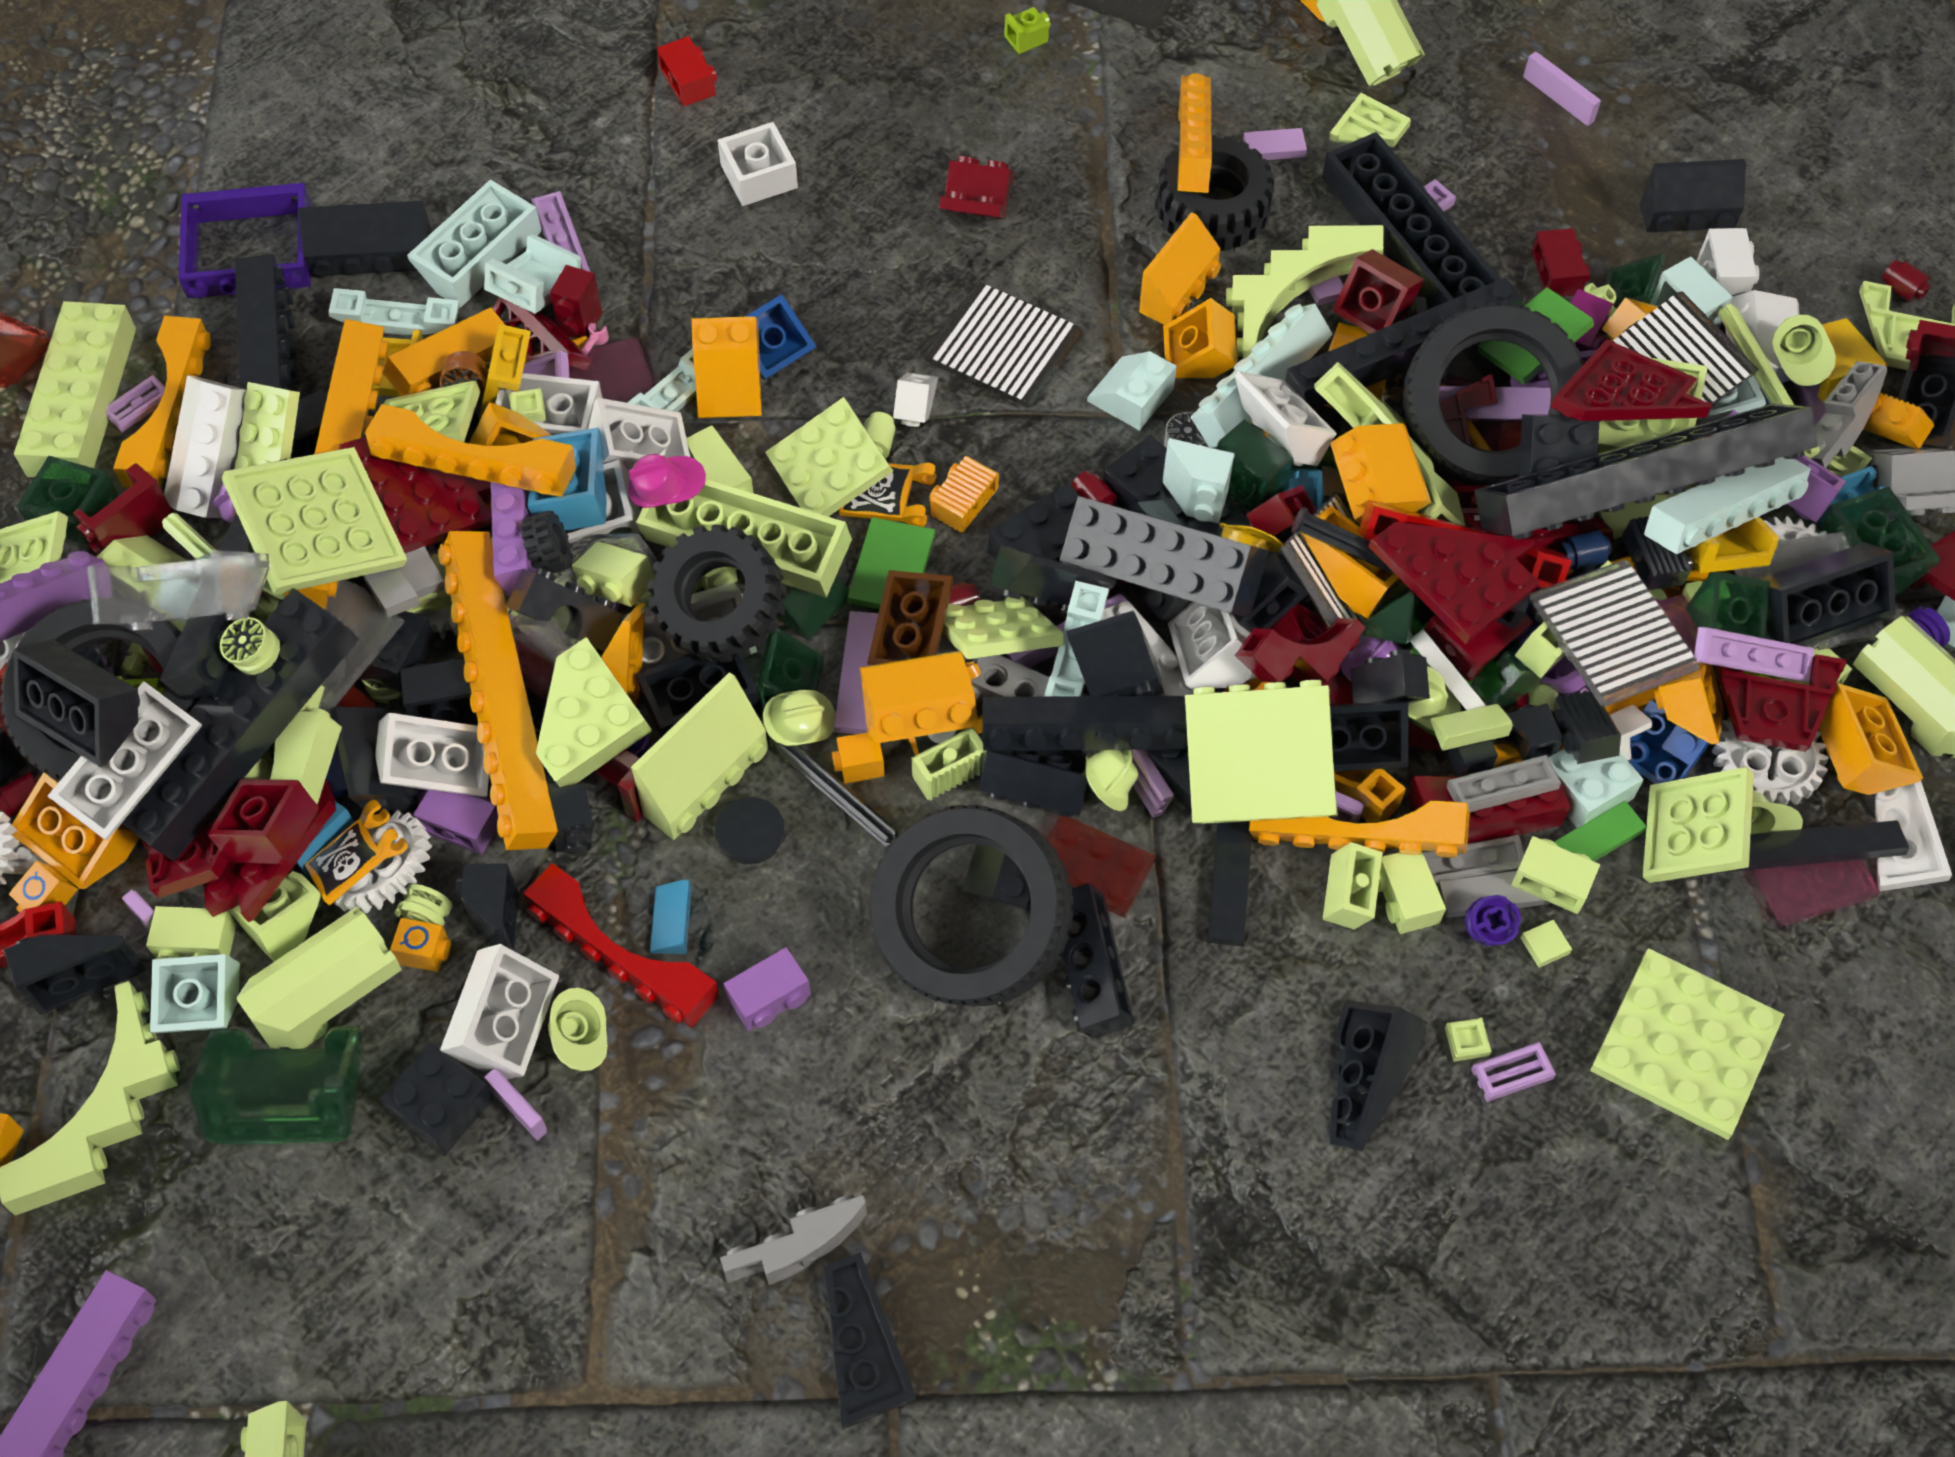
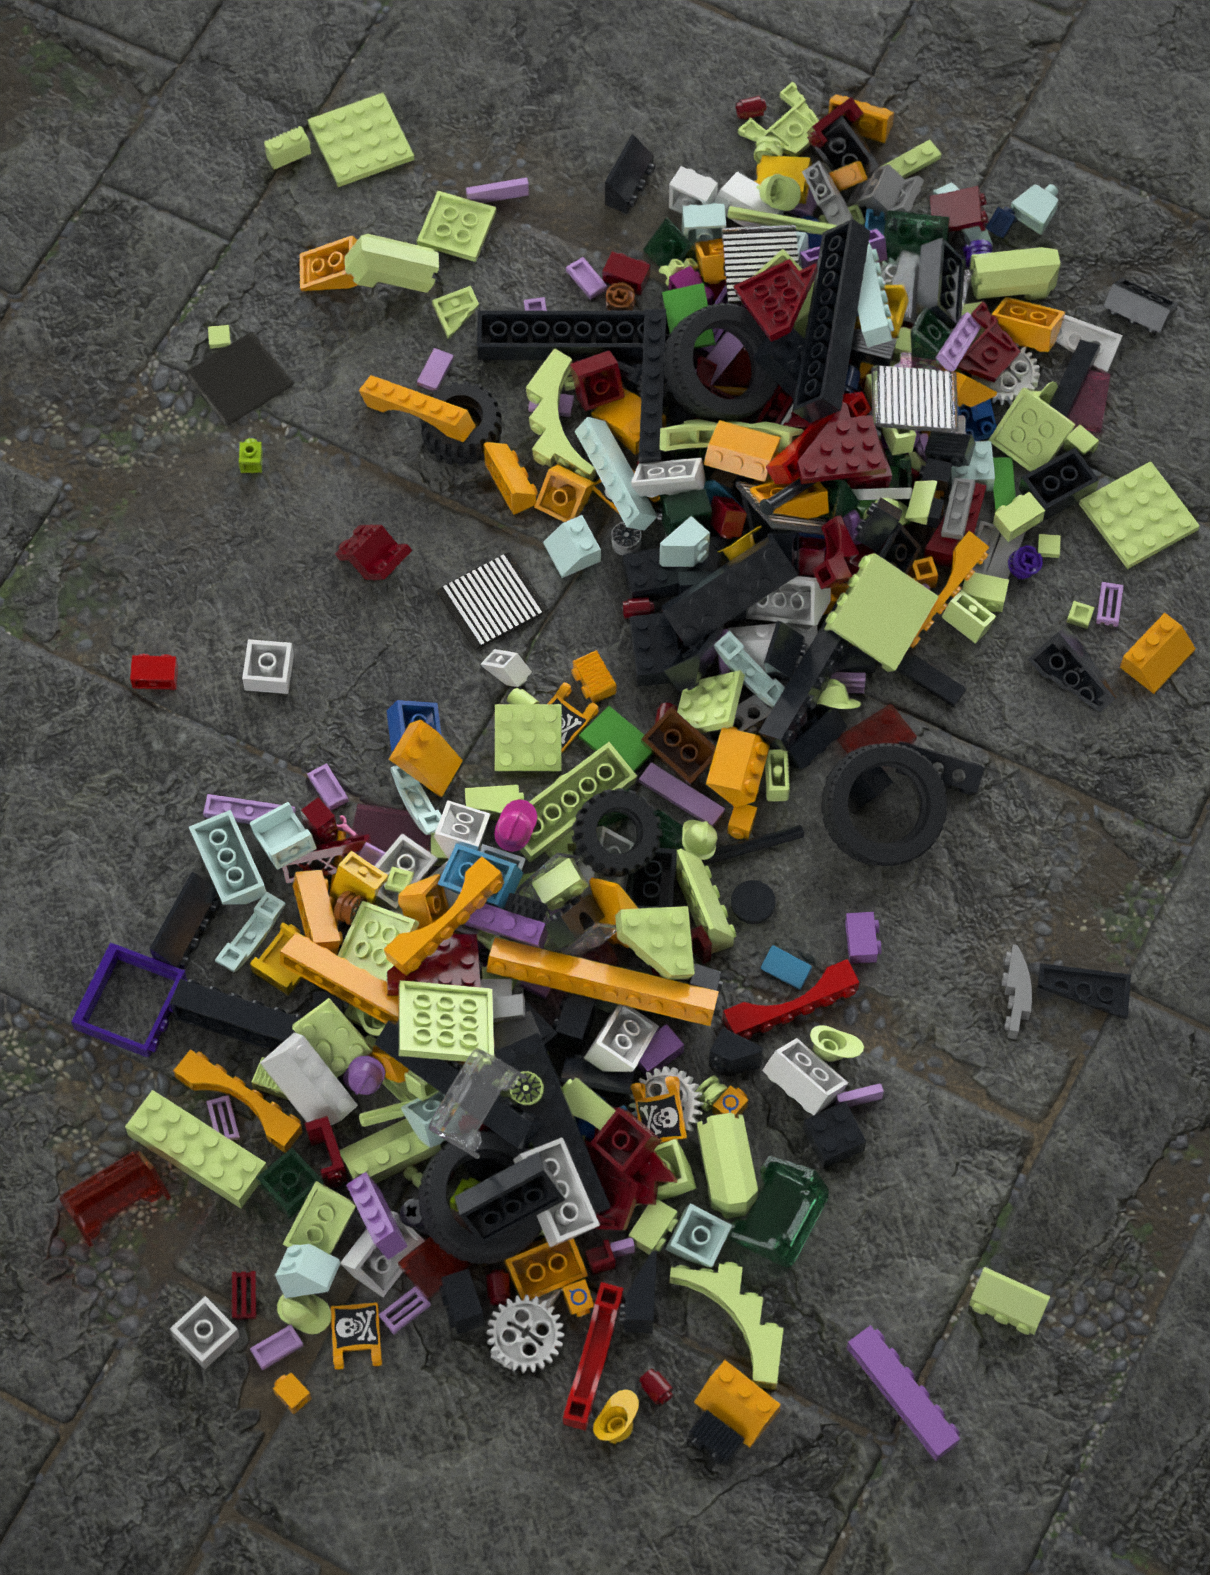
camera: 60 degrees left, 5 degrees up
(111, 895) = (601, 1258): none -> dark red panel
(641, 300) = (327, 787): none -> lavender tile
(1477, 1177) = (1158, 653): none -> light orange slope
(1482, 74) = (456, 226): none -> yellowish green plate
(1521, 231) = (586, 278): none -> lavender tile
(1522, 271) = (620, 297): none -> dark orange wheel
(1647, 903) = (1060, 483): none -> black brick
(1739, 901) = (1081, 440): none -> yellowish green panel
(1864, 321) = (766, 147): none -> yellowish green wheel

